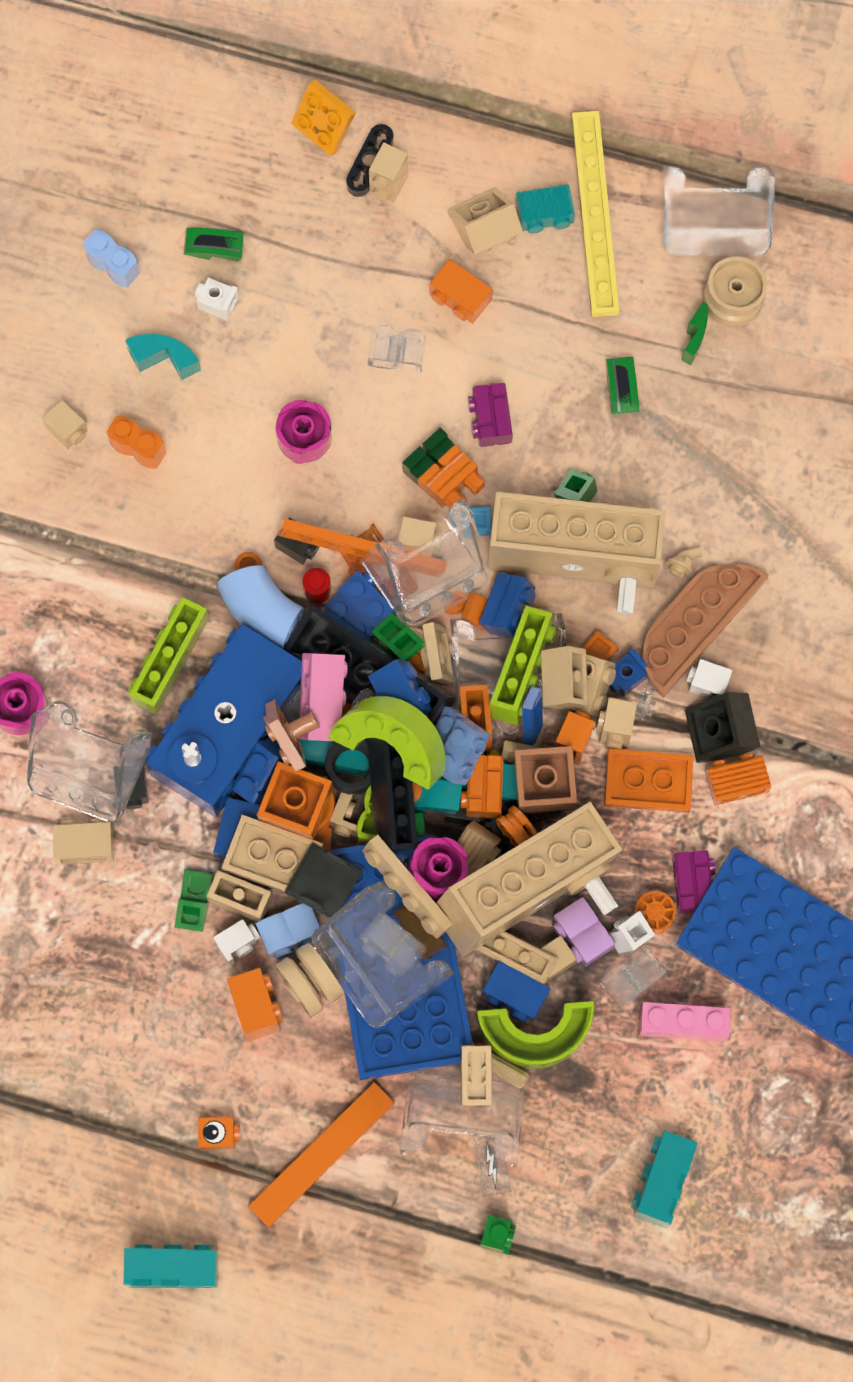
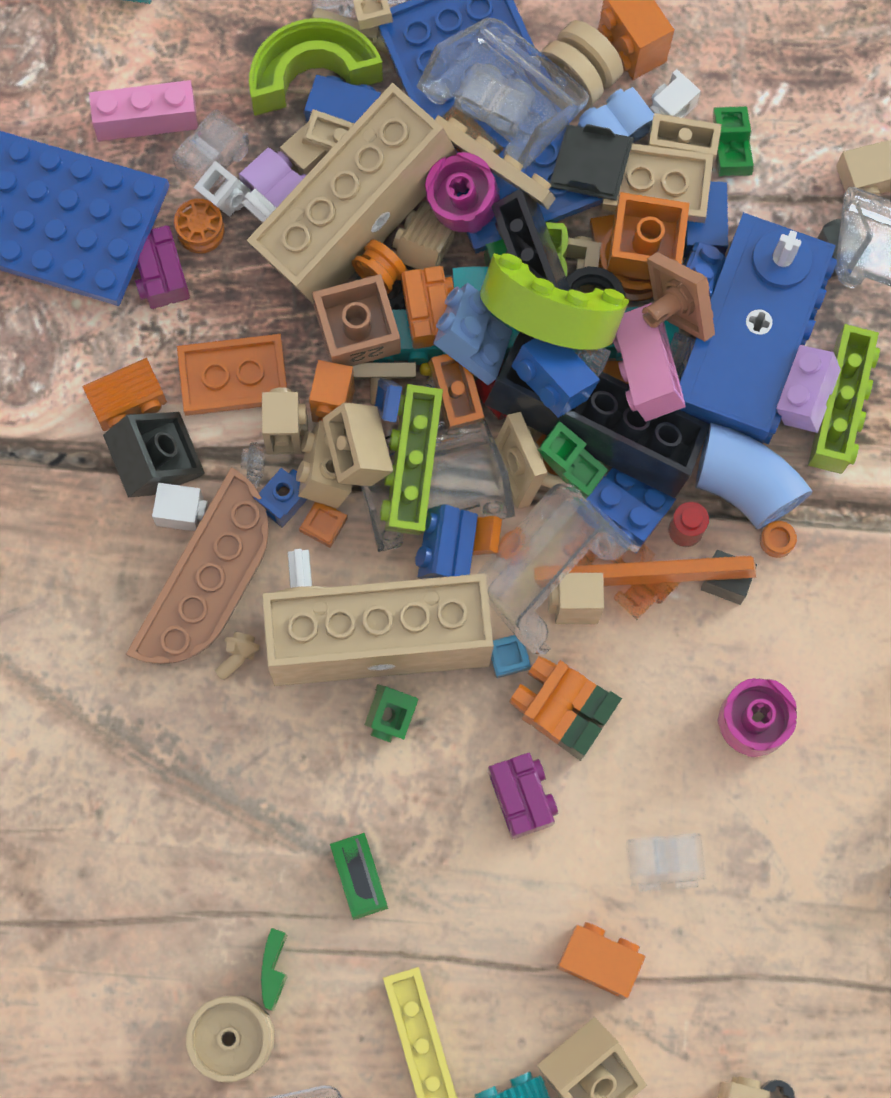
camera: 165 degrees right, 0 degrees up
(200, 654) = (808, 388): none -> lavender brick

